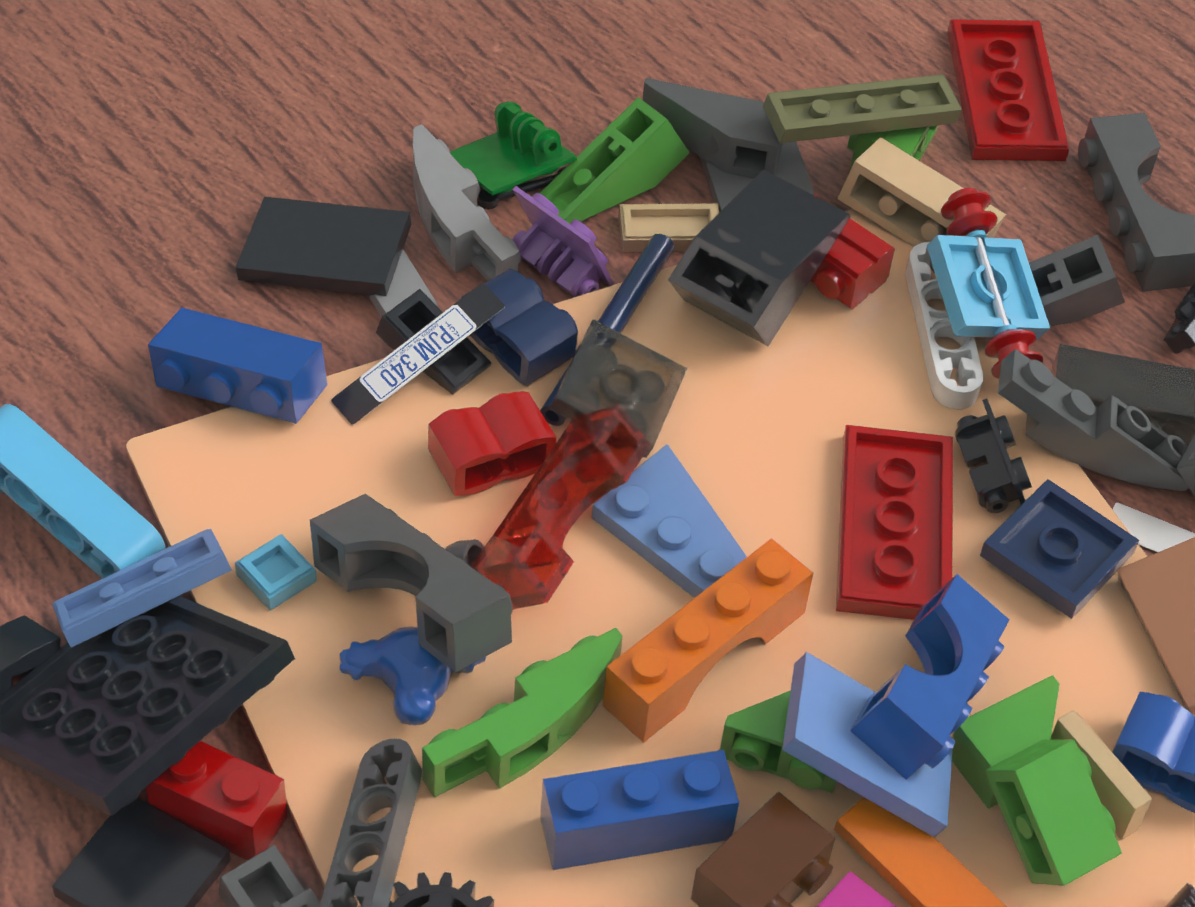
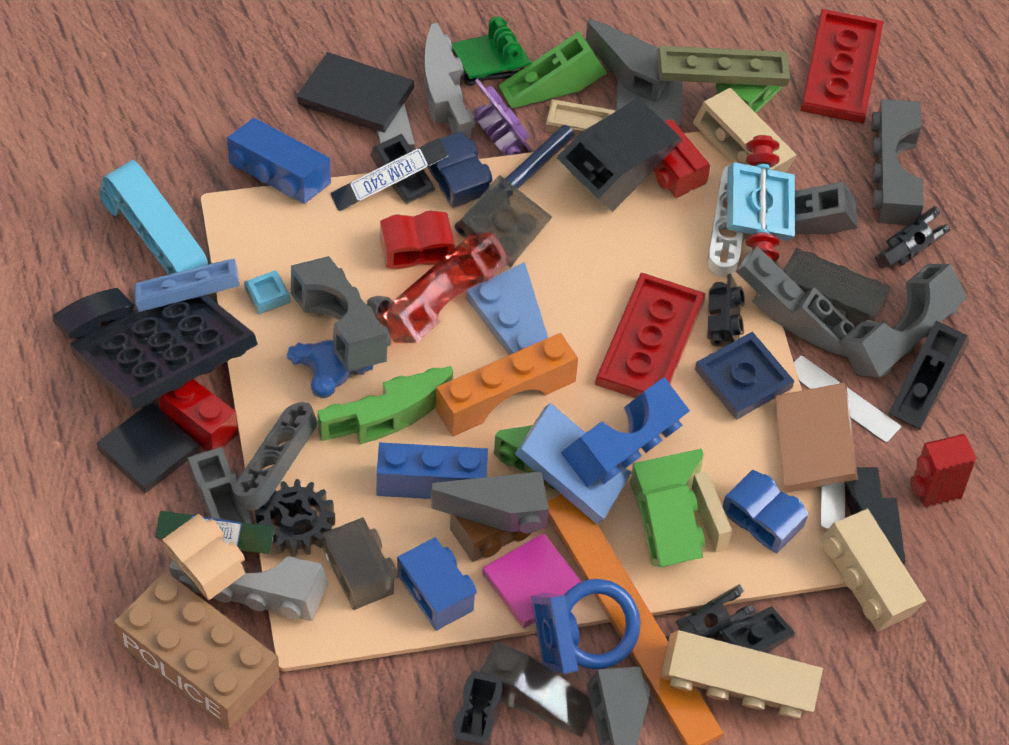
camera: 15 degrees right, 5 degrees up
(777, 837) = (501, 502): none -> dark grey slope

